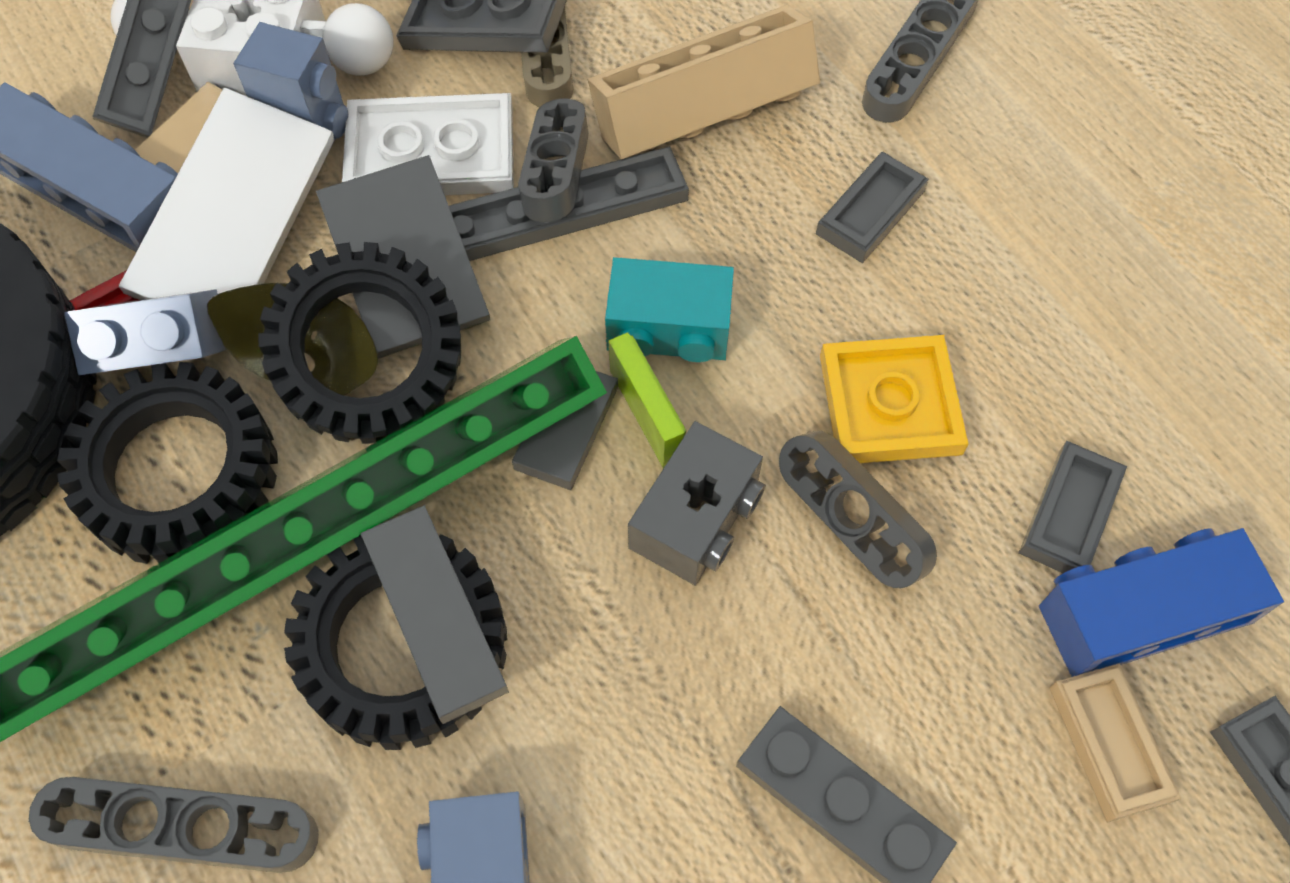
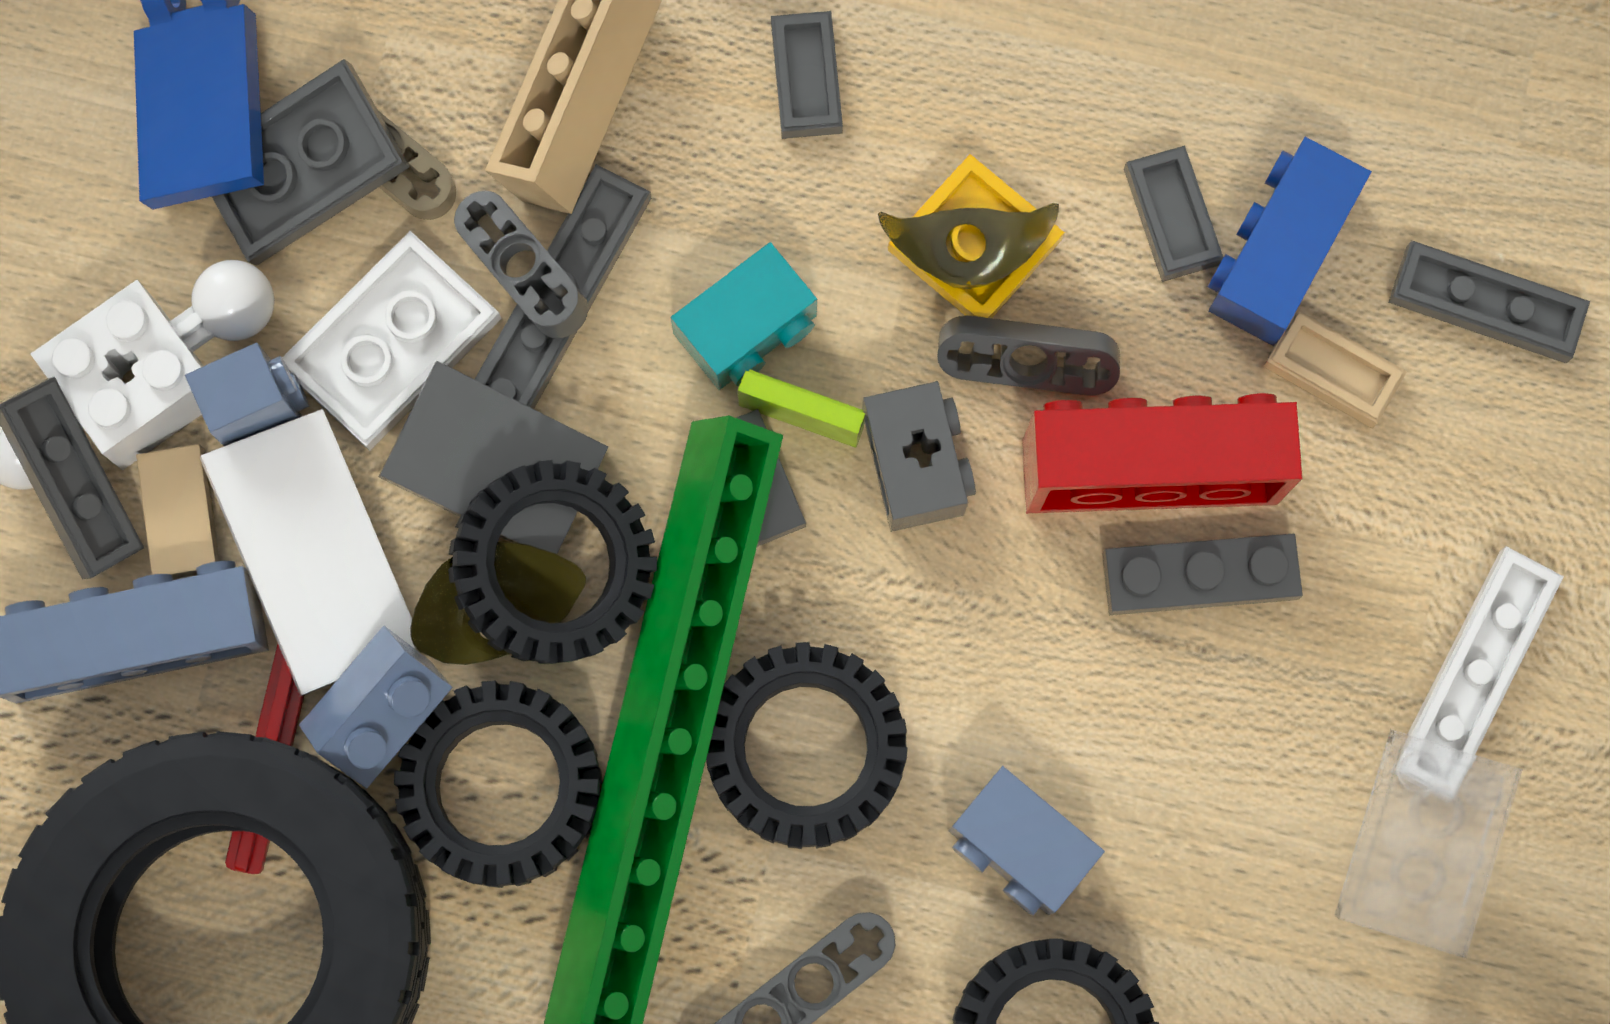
camera: 45 degrees left, 15 degrees up
(434, 614) = (827, 706): dark grey tile -> none
(852, 362) = (1008, 236): none -> clear yellow piece
(894, 665) = (1161, 454): none -> red brick

